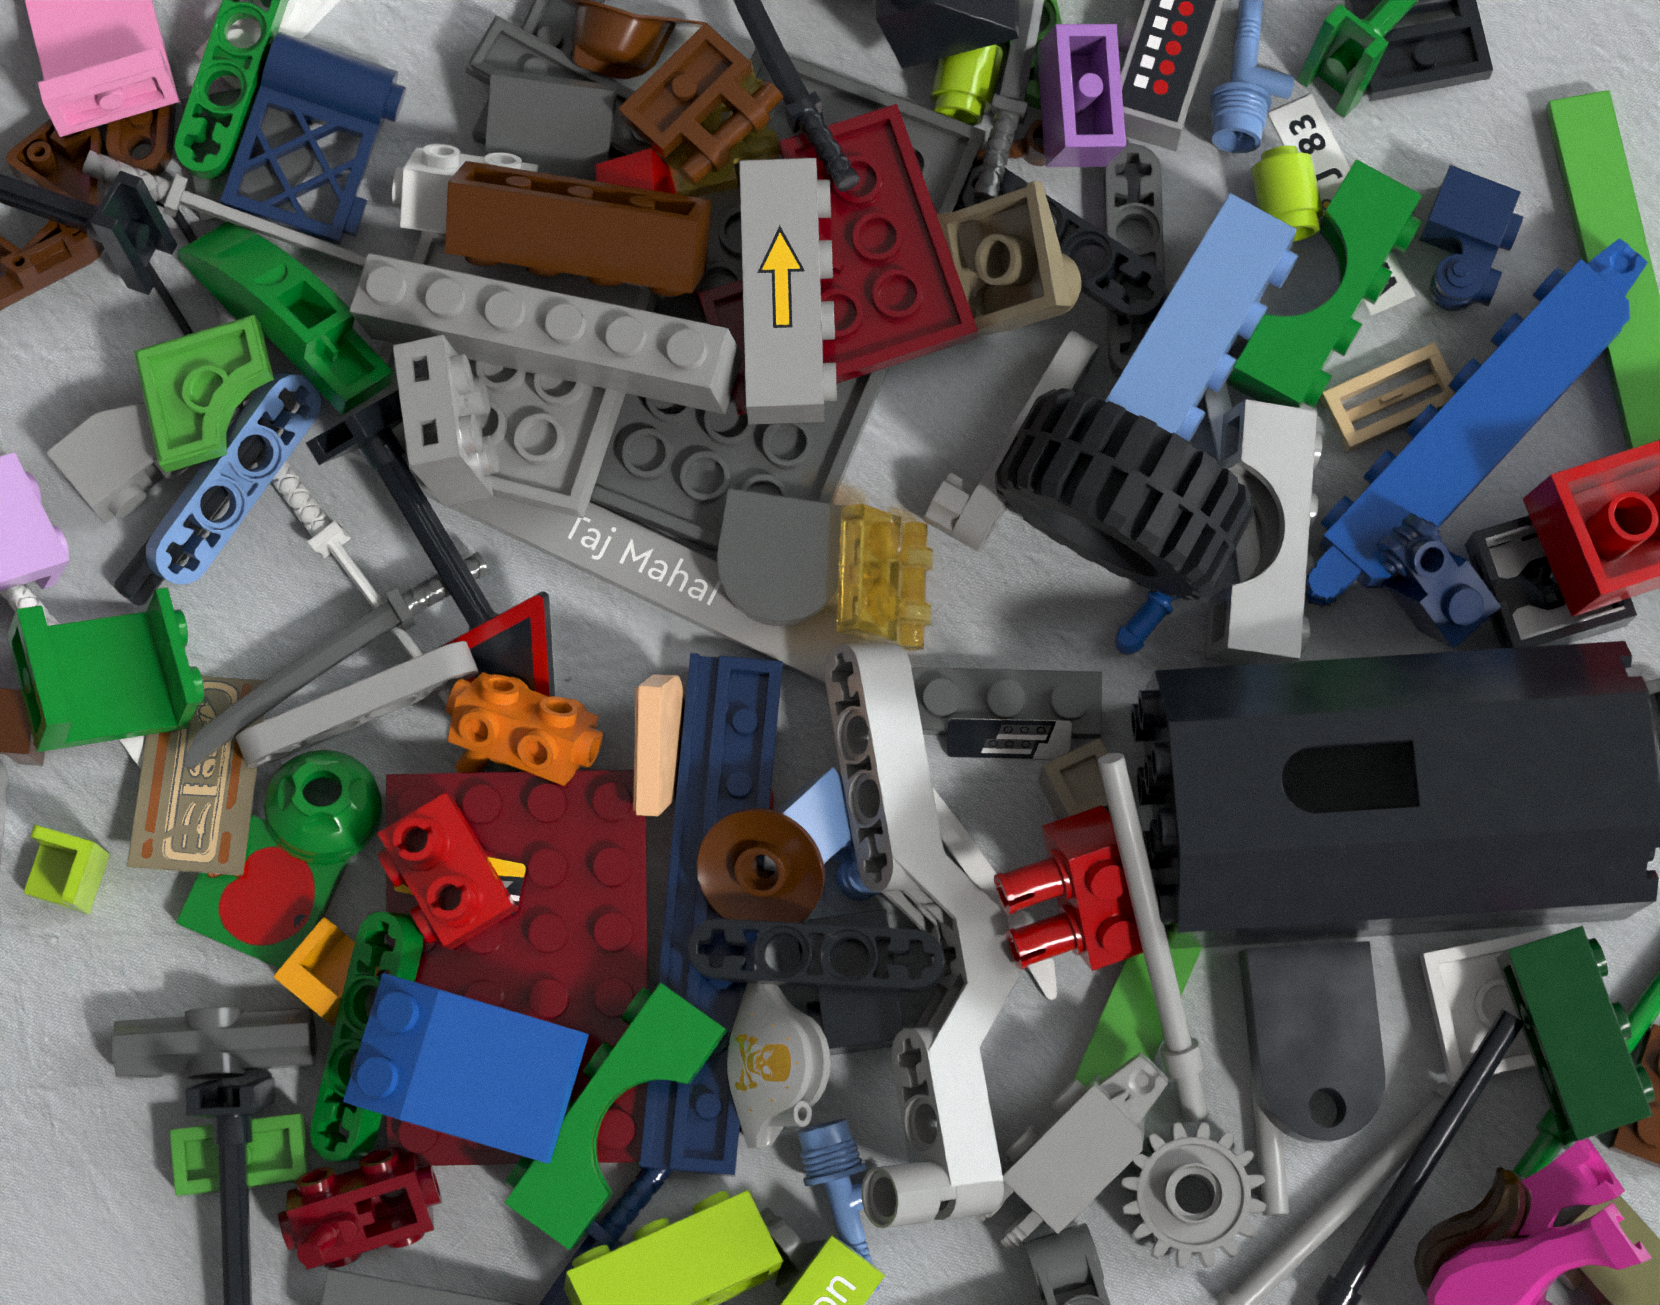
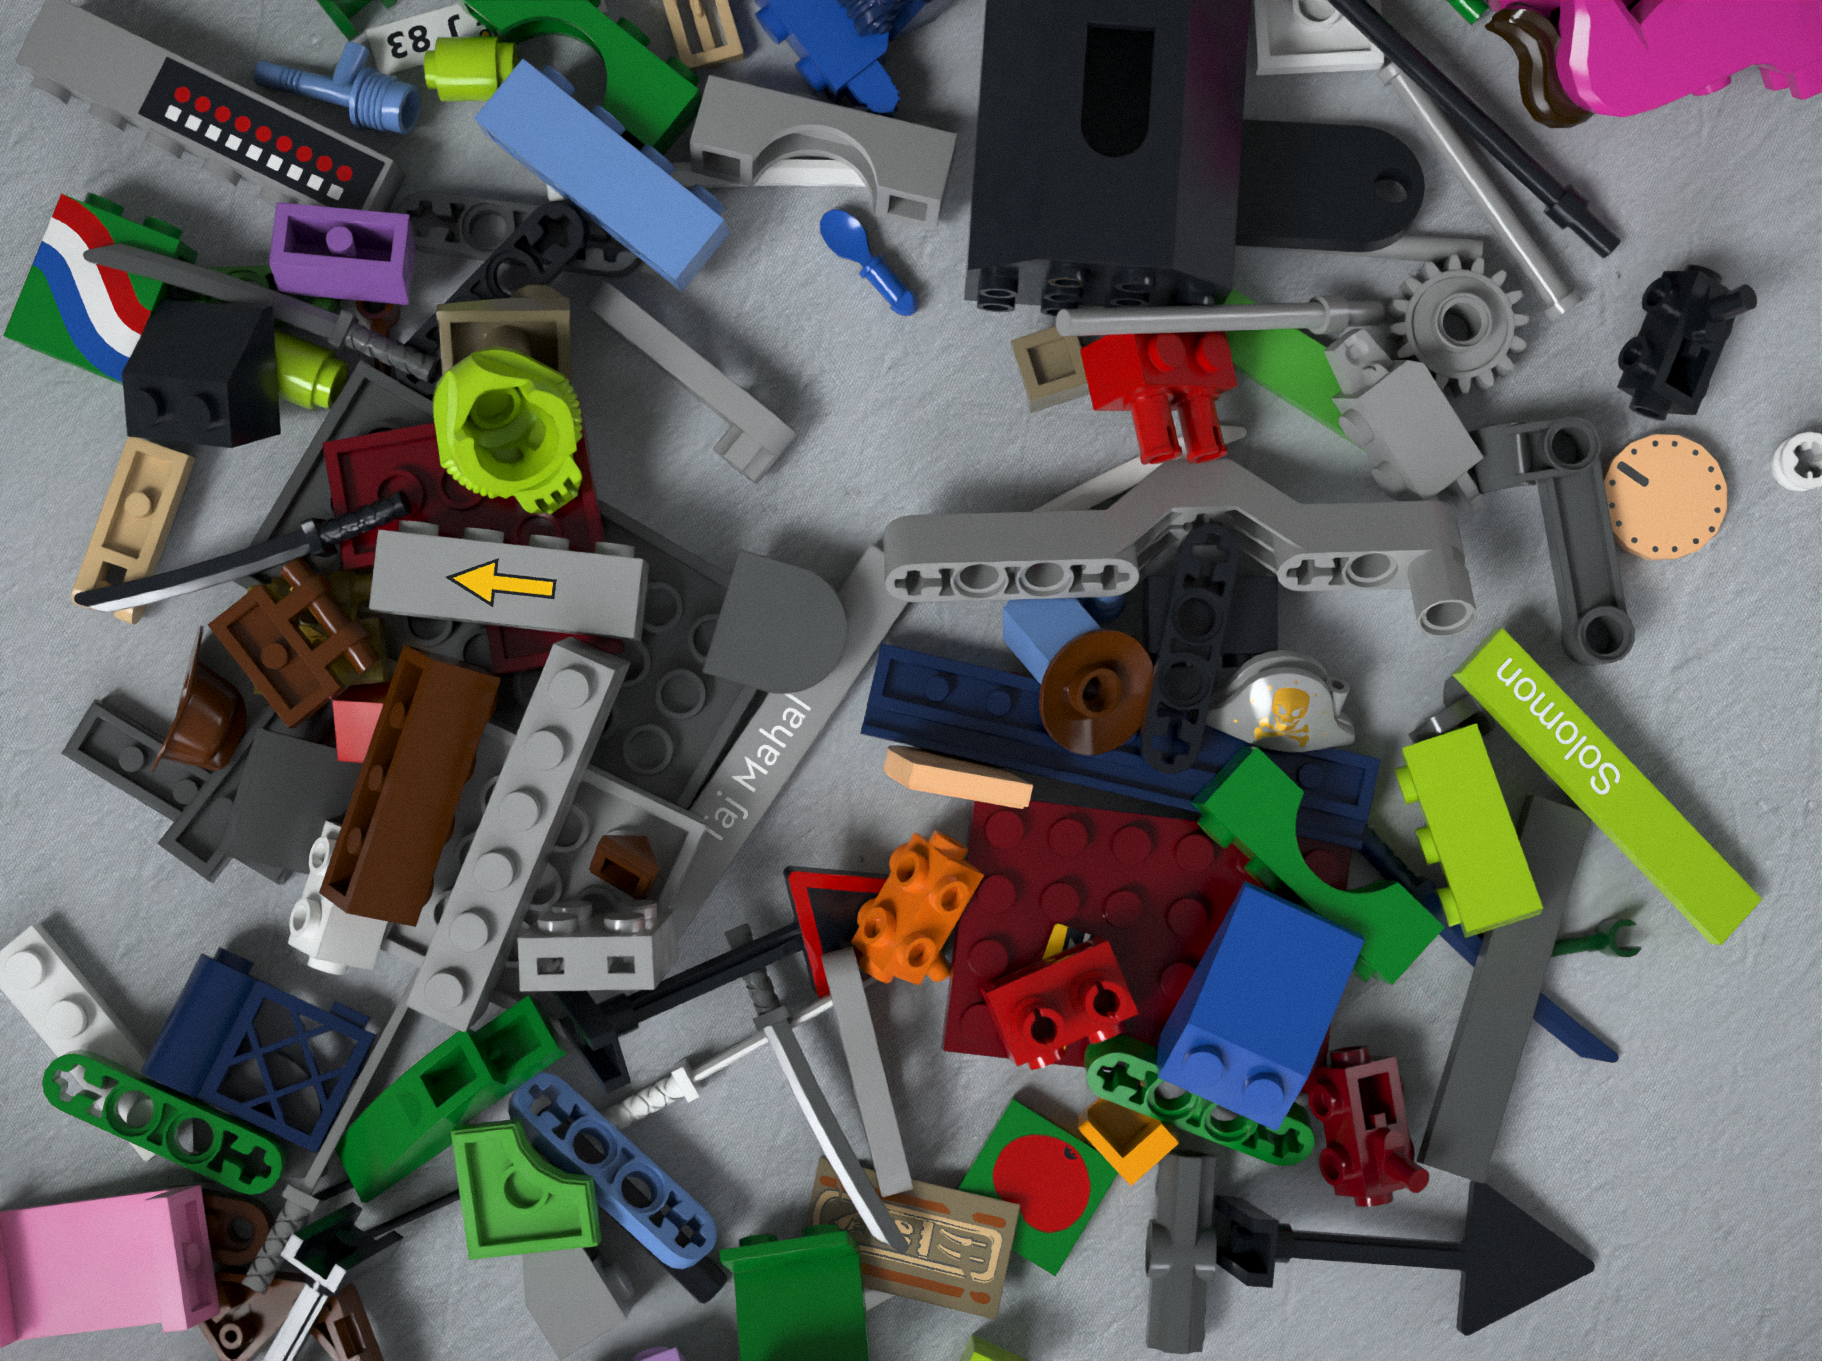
camera: 90 degrees left, 10 degrees up
(274, 1156) = (1302, 1202): bright green plate -> none
(328, 831) = (991, 1121): green piece -> none
(530, 438) = (626, 864): none -> reddish brown slope
(830, 1158) = (1380, 662): medium blue piece -> none
(869, 577) = (813, 531): clear yellow plate -> none
(931, 264) = (509, 428): none -> lime helmet
(1008, 738) = (988, 433): sticker -> none
(1009, 695) = (950, 425): dark grey plate -> none
(1124, 493) = (777, 272): black tyre -> none

